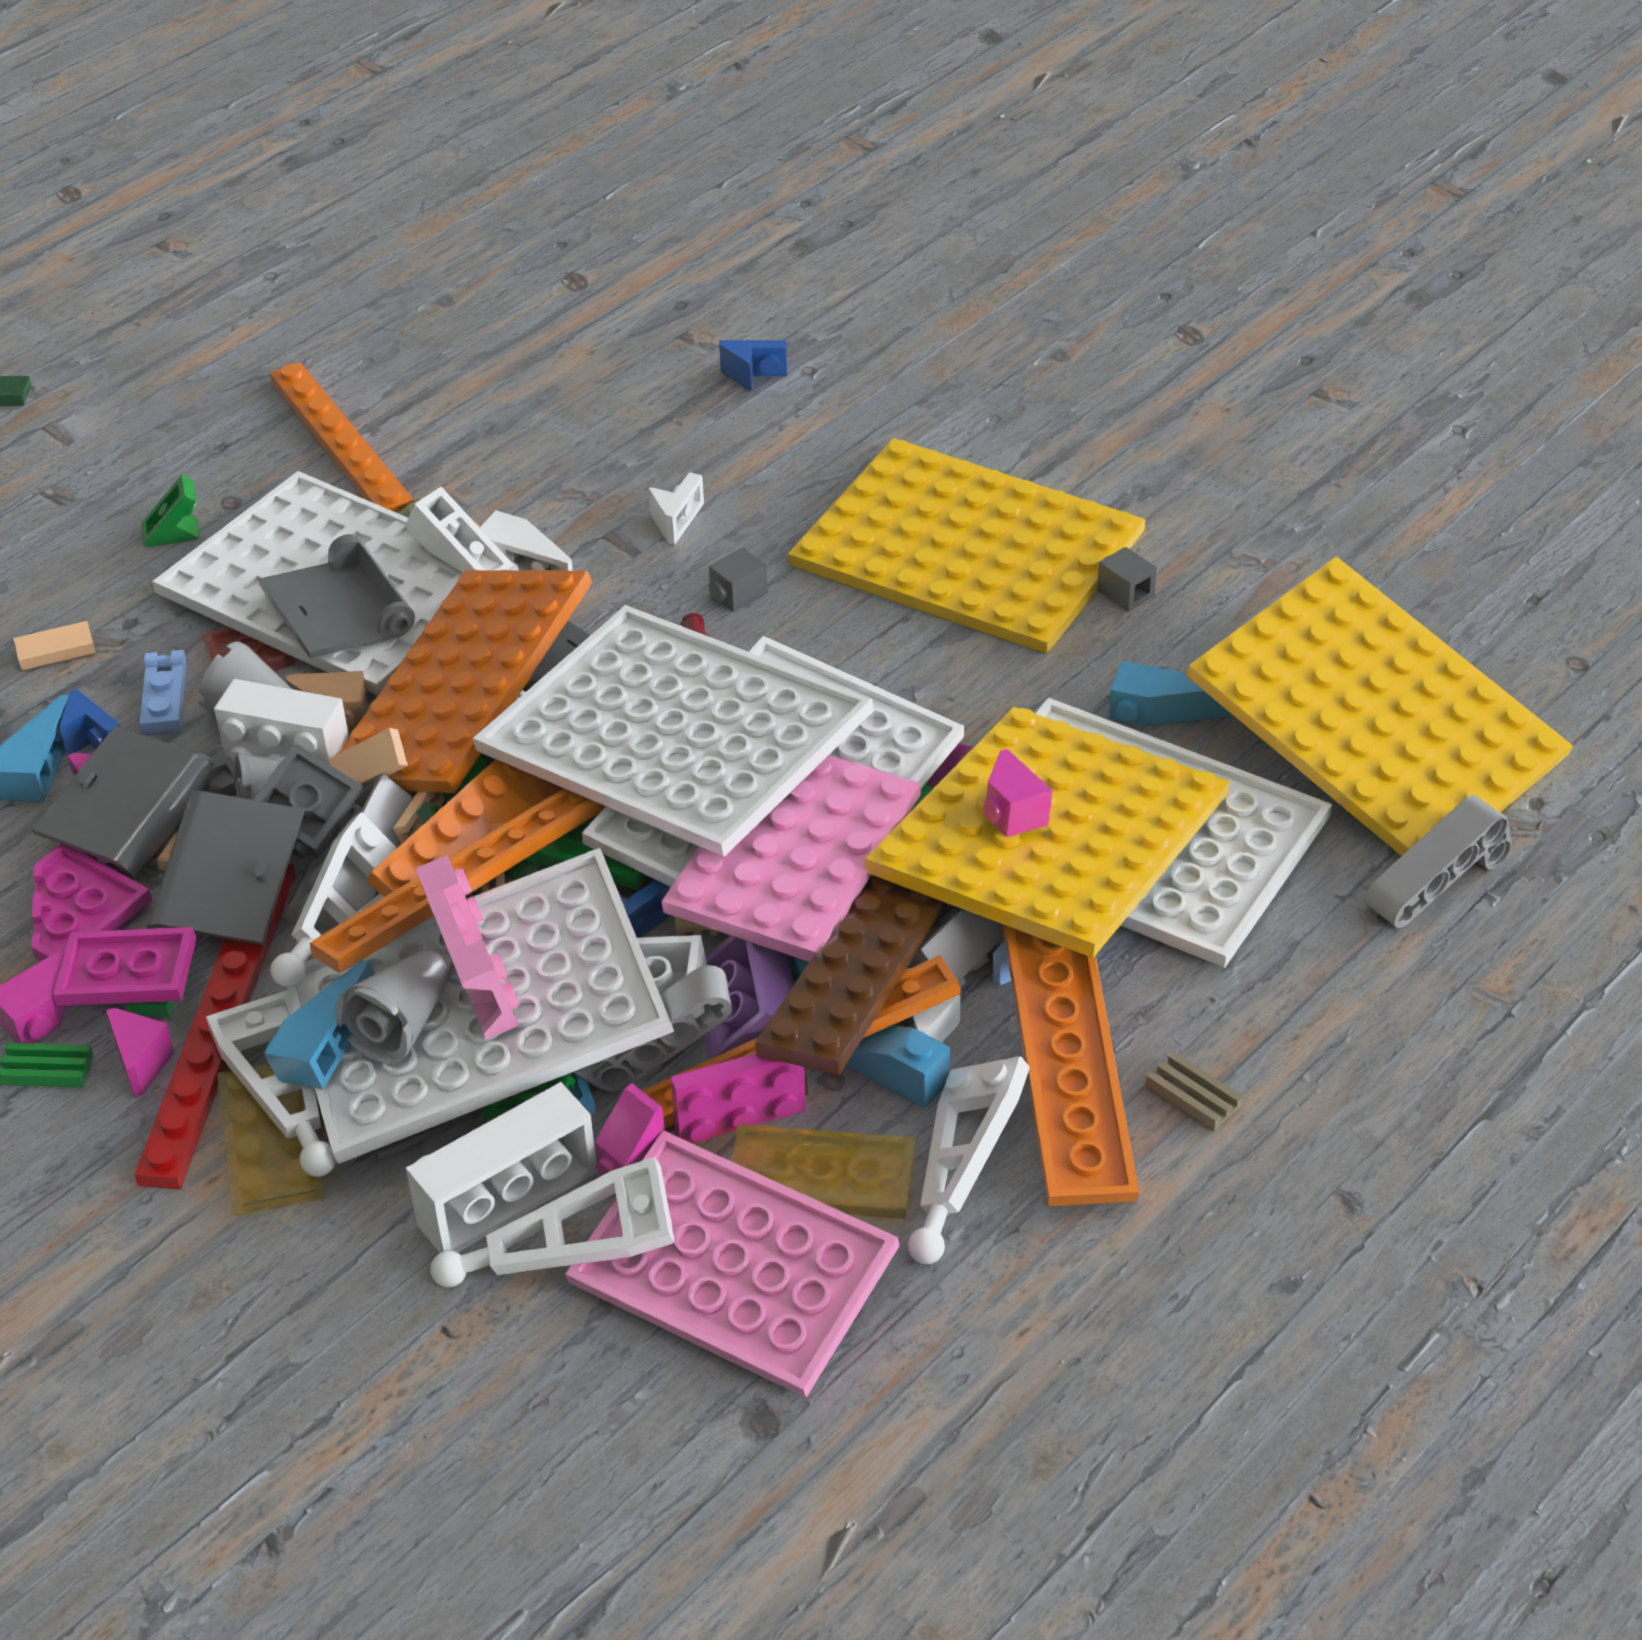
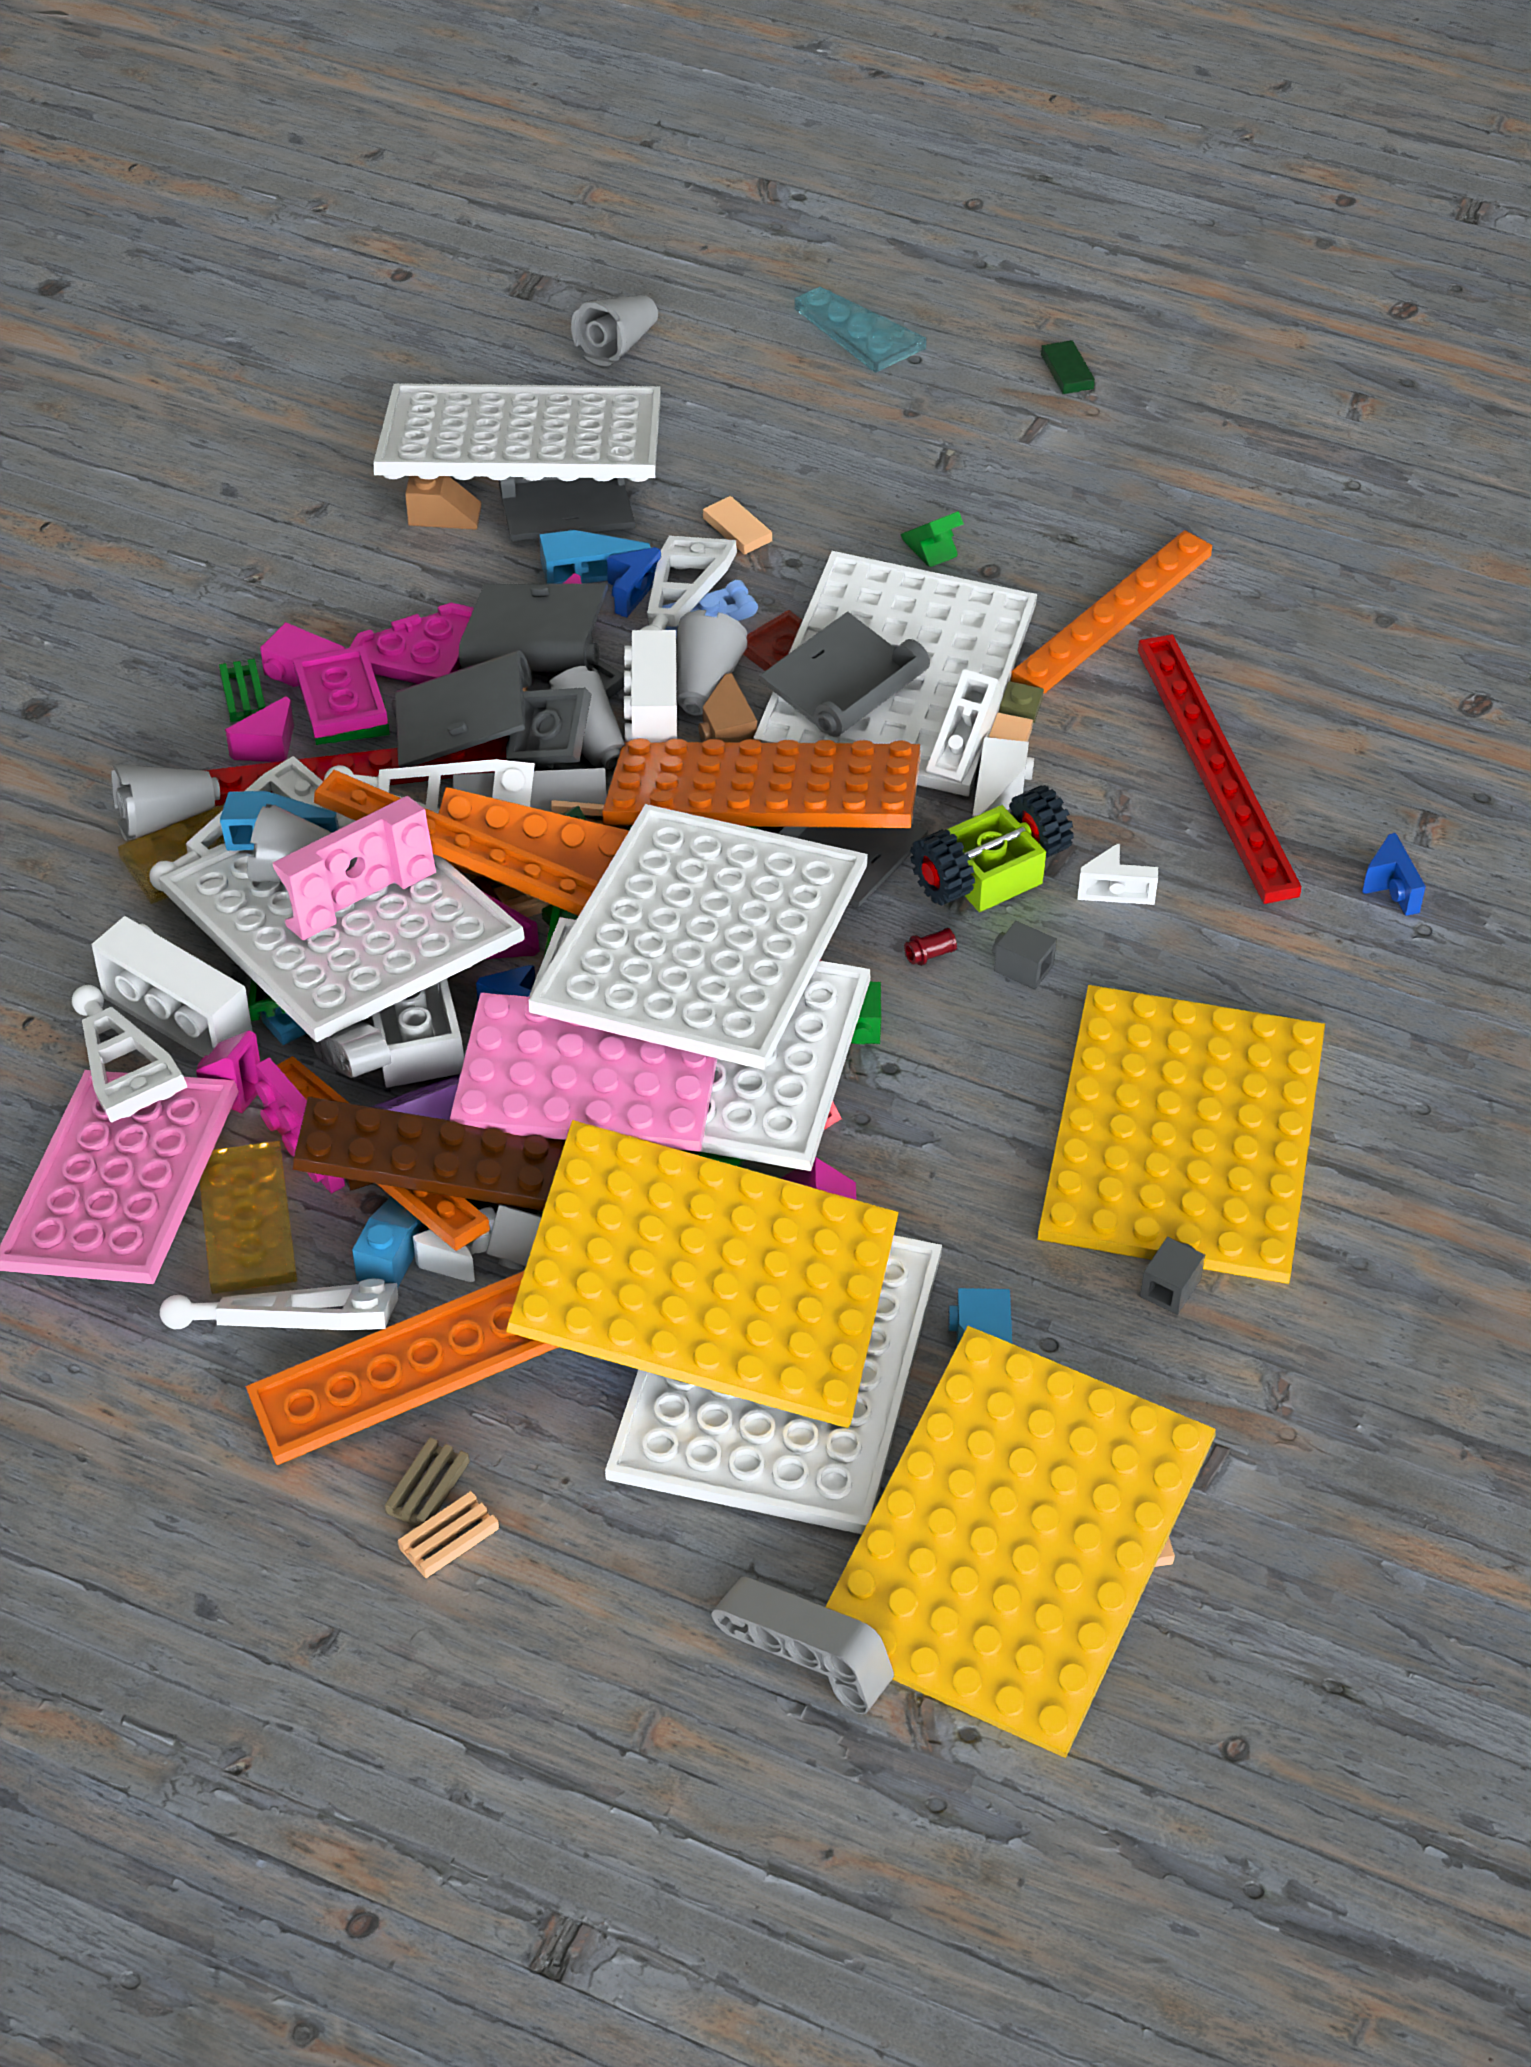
camera: 70 degrees right, 5 degrees up
(99, 661) = (686, 553): none -> white plate
(199, 1148) = (159, 797): none -> light grey cone
(372, 757) = (619, 755): light nougat tile -> none
(570, 423) = (1219, 770): none -> red plate
(618, 553) = (994, 852): none -> brick
(1016, 797) = (695, 1211): dark pink slope -> none
(1268, 1076) = (443, 1529): none -> light nougat tile

